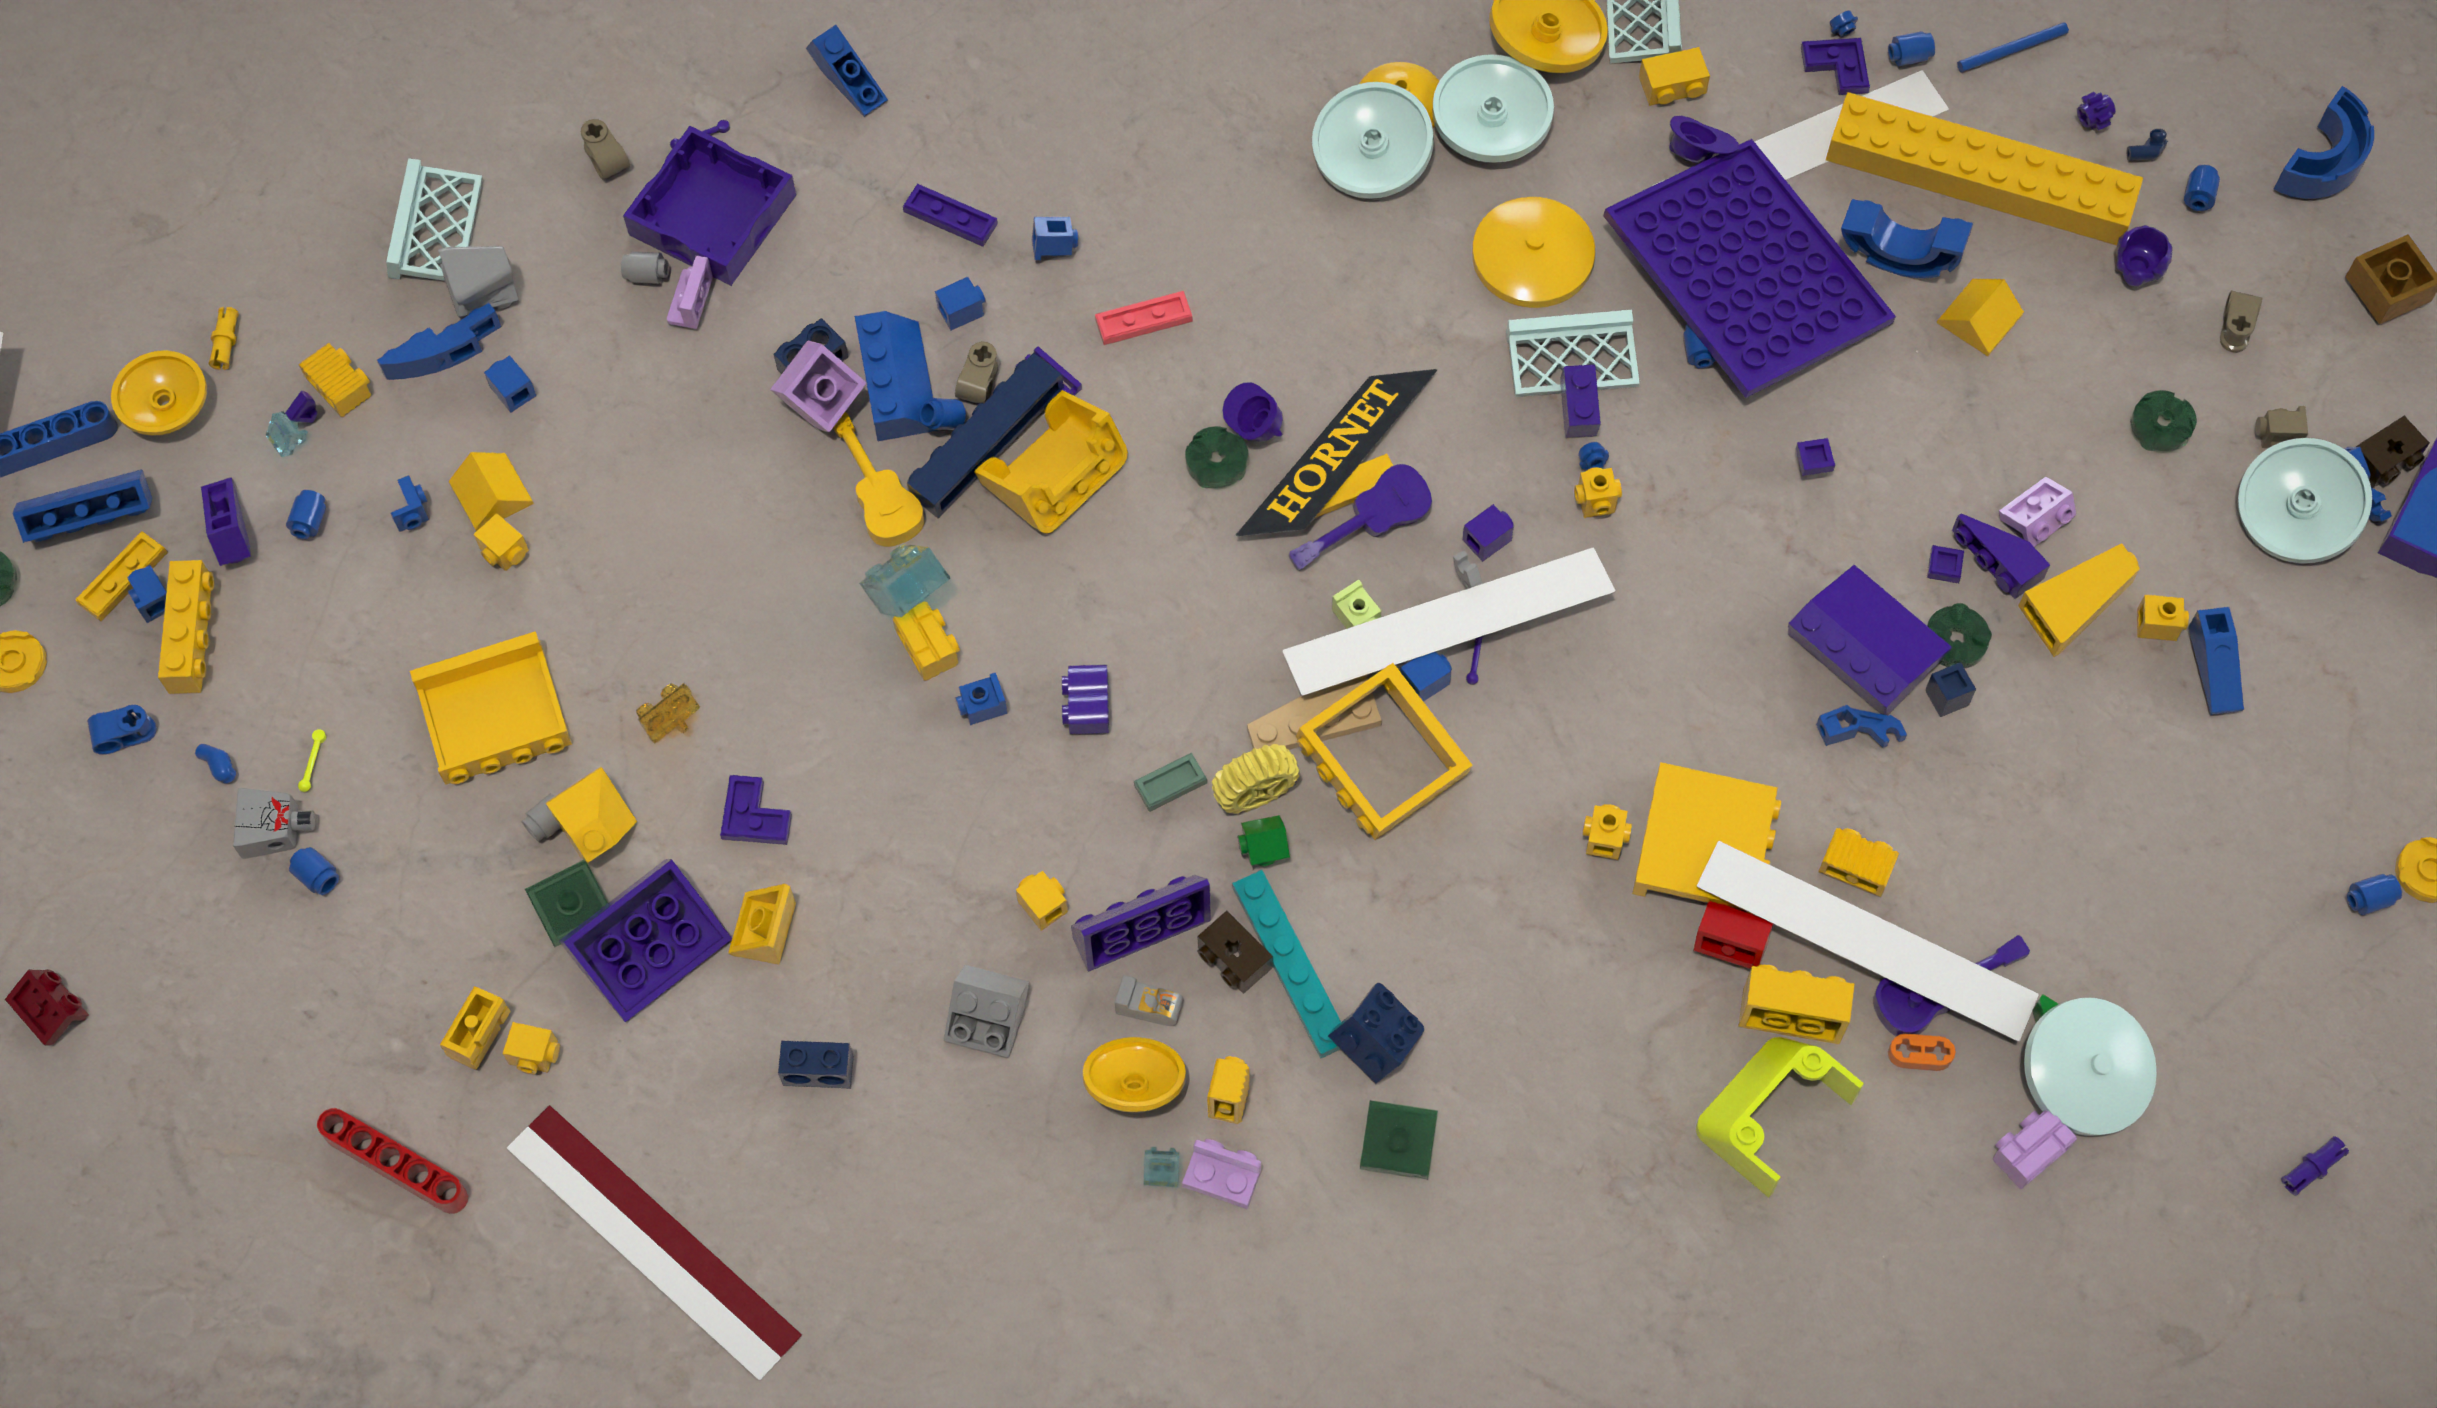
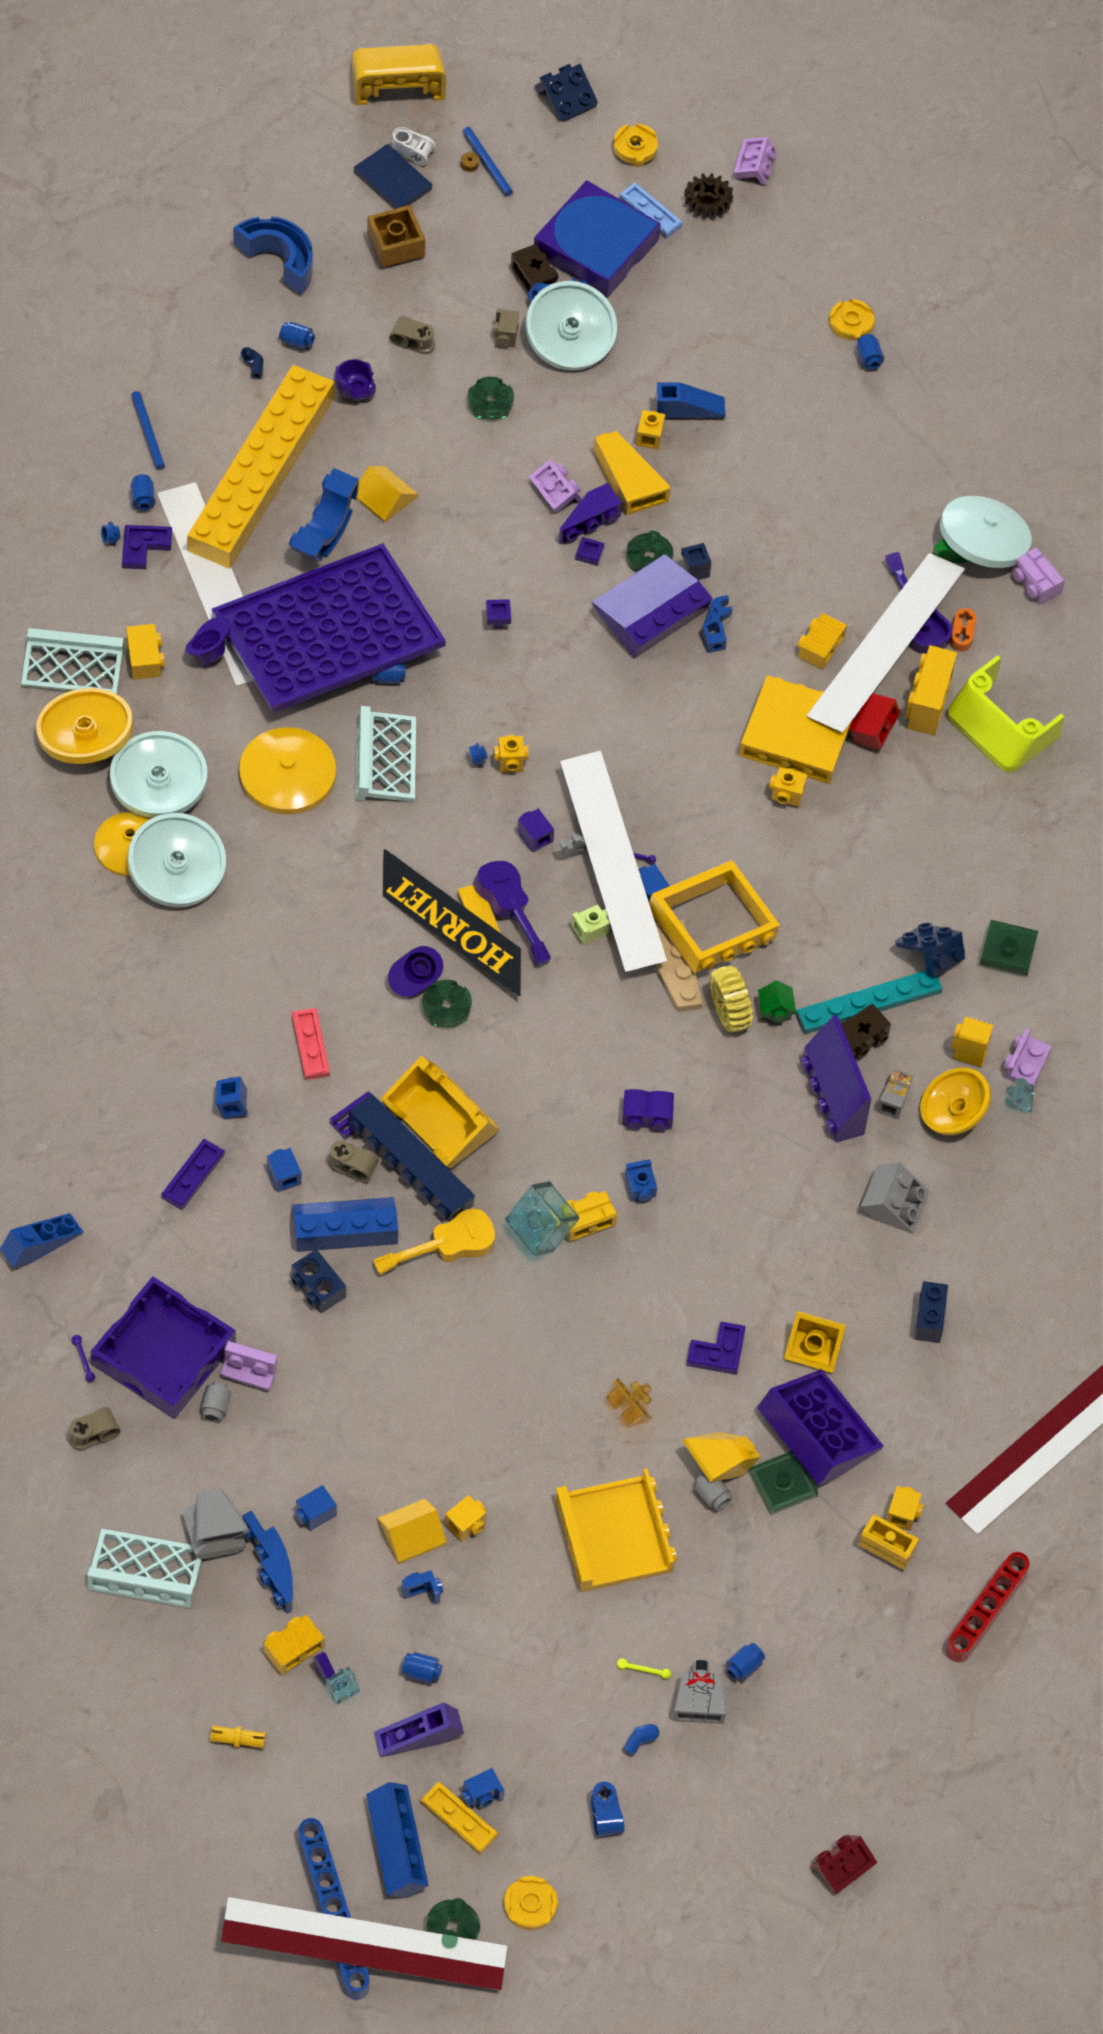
camera: 90 degrees left, 5 degrees down
(152, 381) = (299, 1763): yellow dish -> none
(185, 627) = (519, 1758): yellow brick -> none
(818, 386) = (360, 1267): lavender brick -> none
(942, 413) = (389, 1186): blue brick -> none
(1042, 899) = (810, 1154): yellow brick -> none
(1170, 782) = (718, 1064): sand green tile -> none
(1580, 401) = (433, 752): dark purple brick -> none
(2096, 110) = (220, 386): dark purple gear -> none
(2315, 1165) = (1058, 425): dark purple pin -> none

